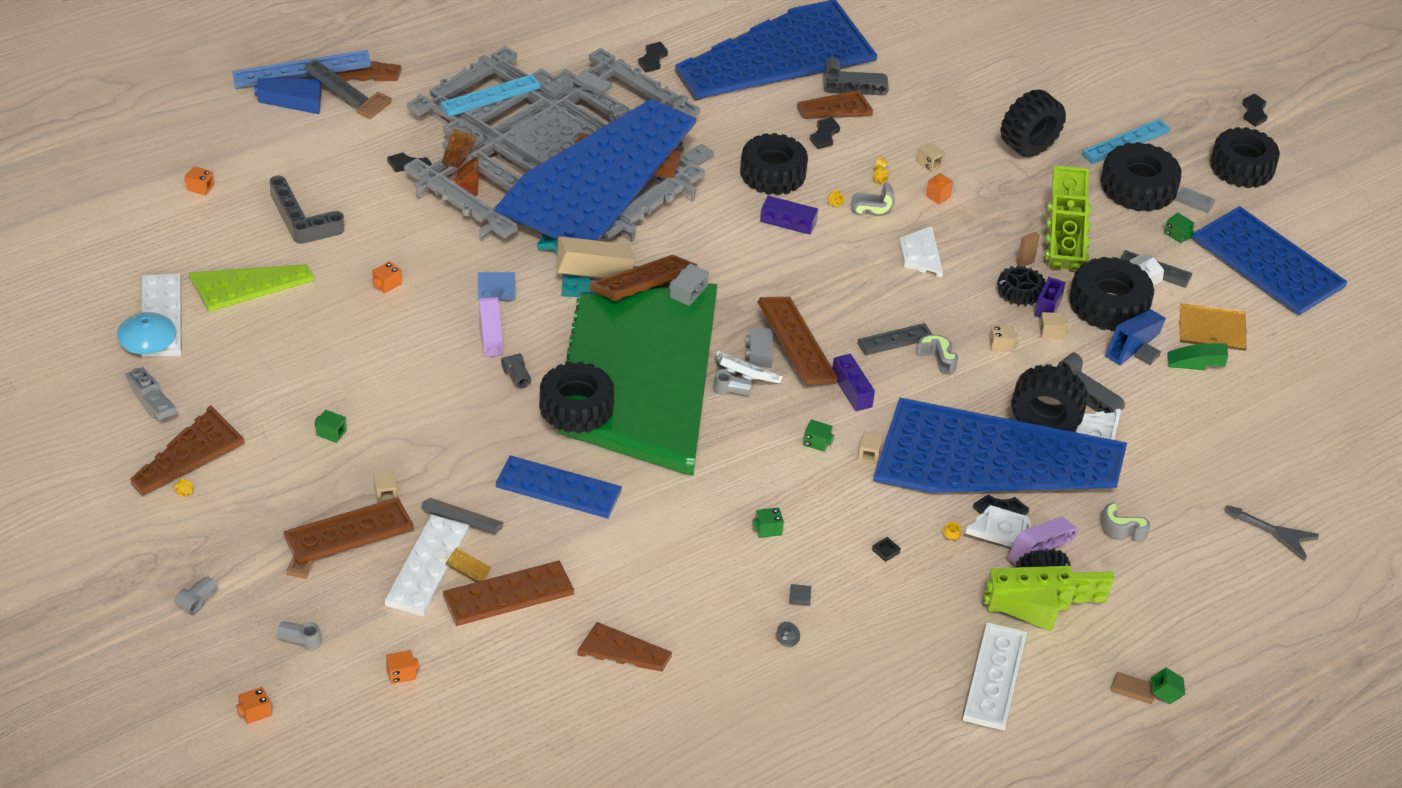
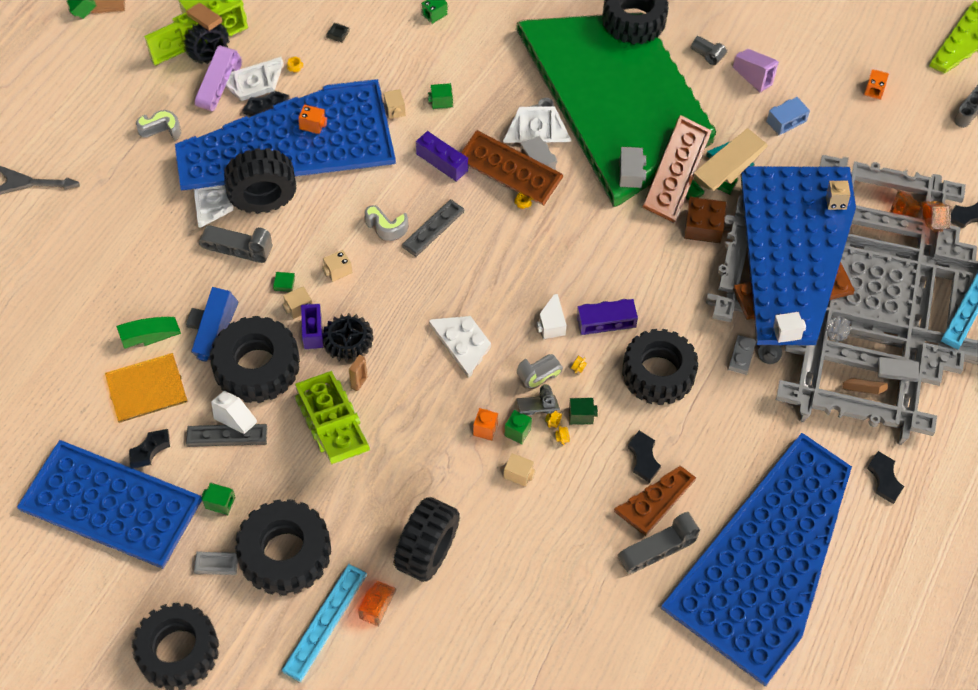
camera: 155 degrees right, 15 degrees up
(538, 172) = (838, 195): none -> tan brick
(622, 92) = (865, 386): none -> medium nougat tile
(649, 240) = (705, 220): none -> reddish brown brick
(671, 102) = (789, 327): none -> white brick
(837, 231) = (552, 320): none -> white slope
(855, 169) = (582, 411): none -> dark green brick
(895, 175) = (544, 403): none -> dark grey hinge
(914, 177) = (518, 427): none -> green brick
(967, 447) = (312, 119): none -> orange brick
(1042, 556) = (204, 16): none -> medium nougat tile
(1056, 351) = (284, 281): none -> green tile
(1083, 131) = (376, 603): none -> clear orange slope
(1217, 282) = (145, 452): none -> black tile

